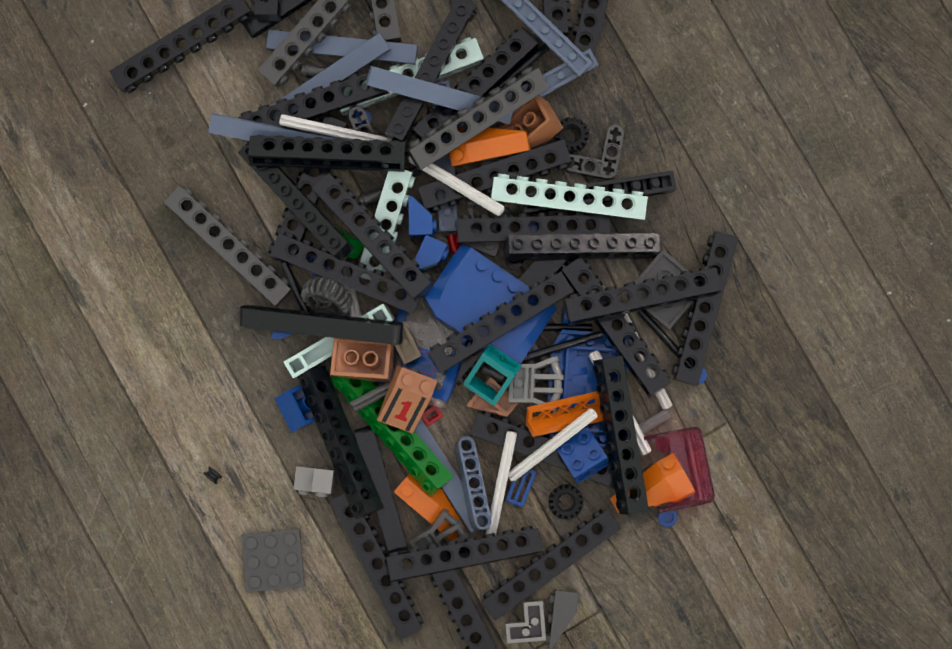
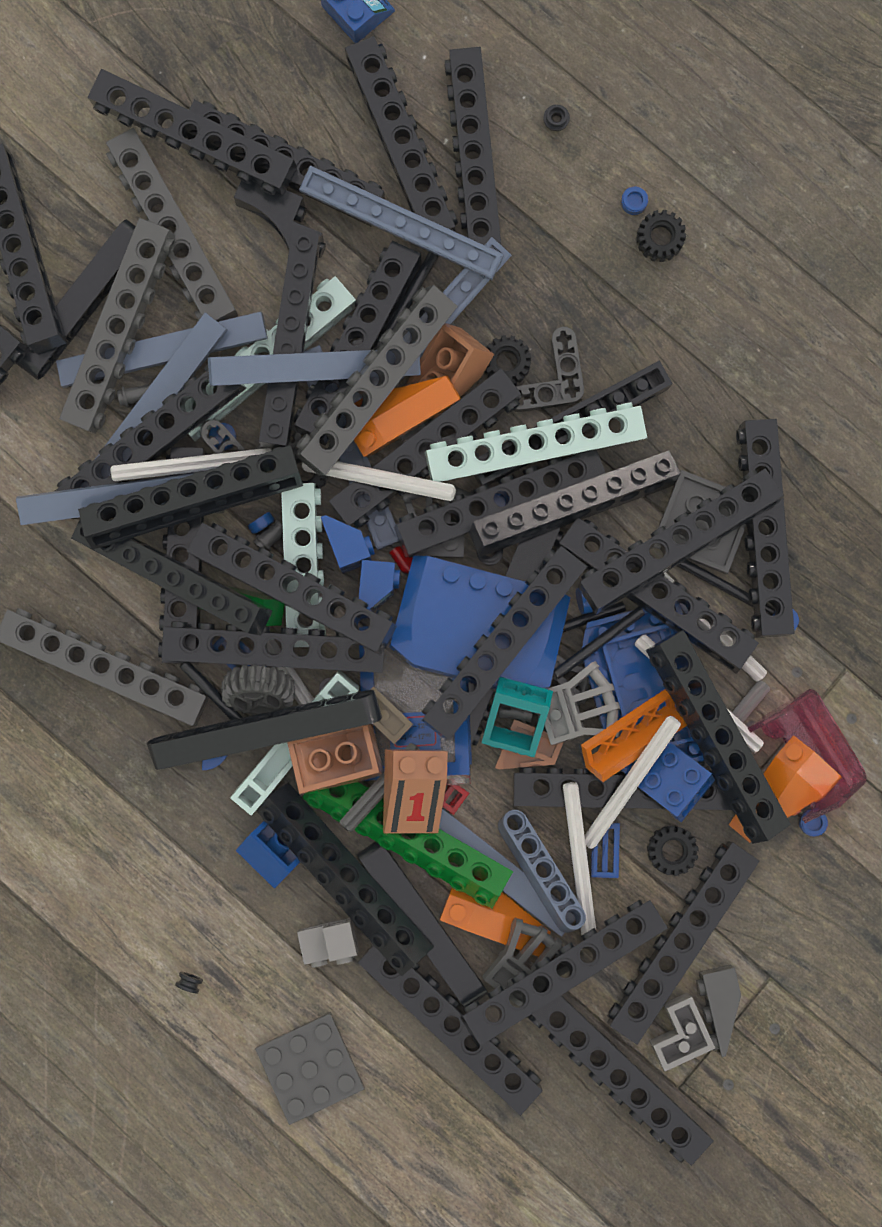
camera: 20 degrees left, 0 degrees up
(367, 186) = (261, 523): none -> blue tile
(697, 55) = (634, 200): none -> blue tile
(709, 75) = (661, 220): none -> black tyre

